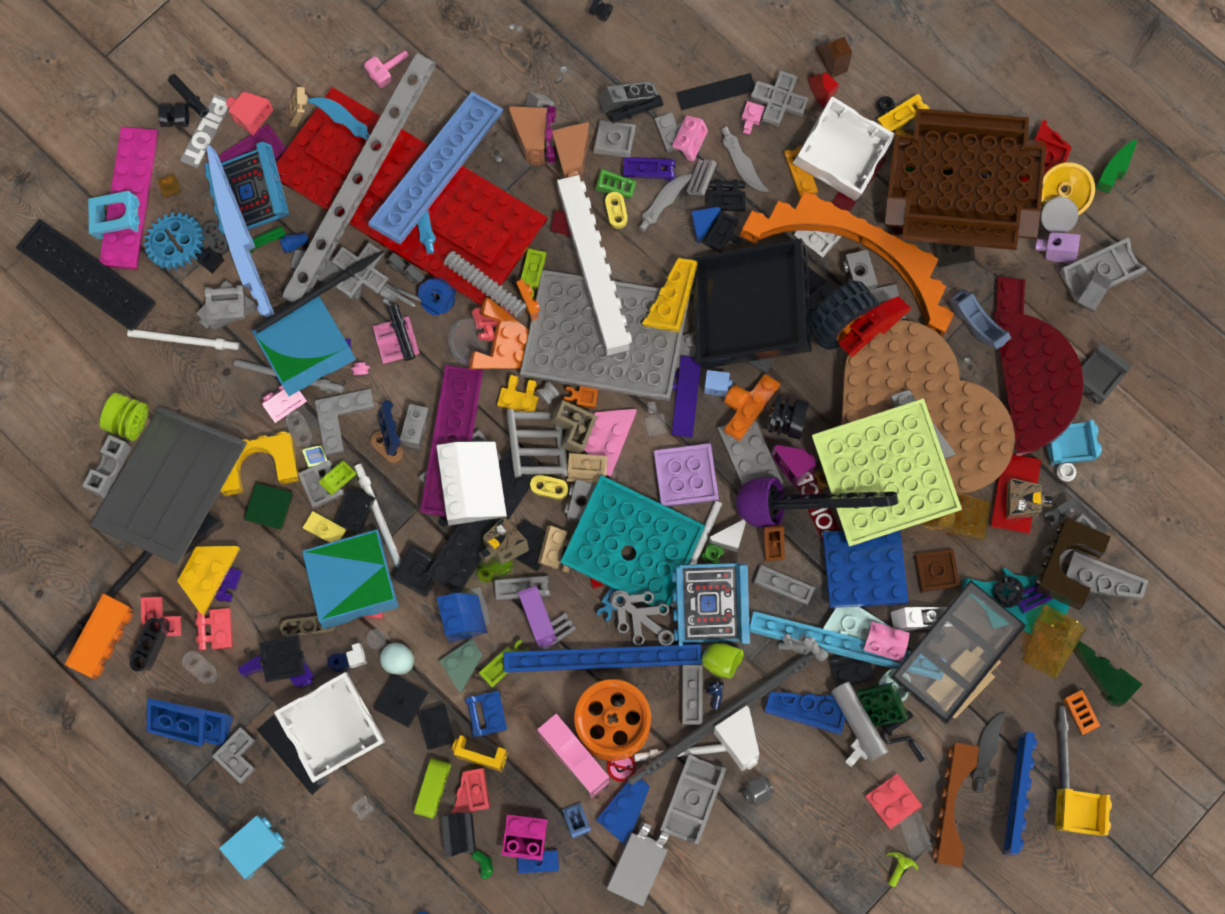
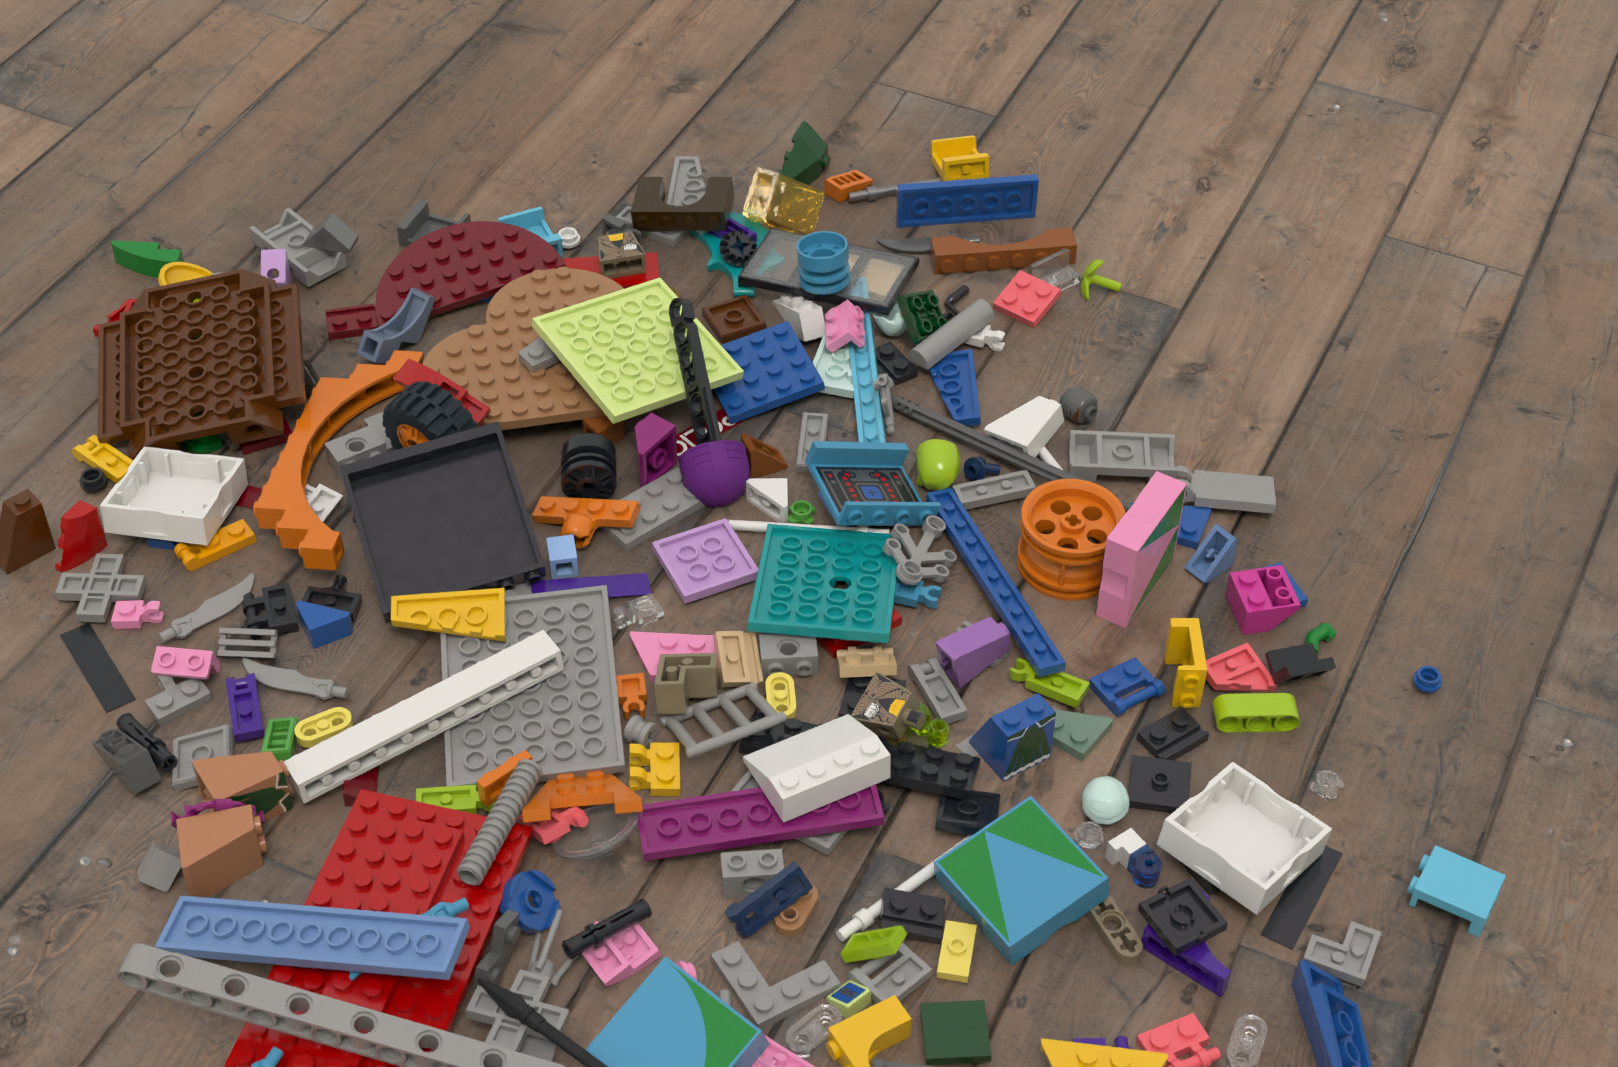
camera: 110 degrees left, 30 degrees down
(952, 629) = (823, 262): none -> dark azure wheel

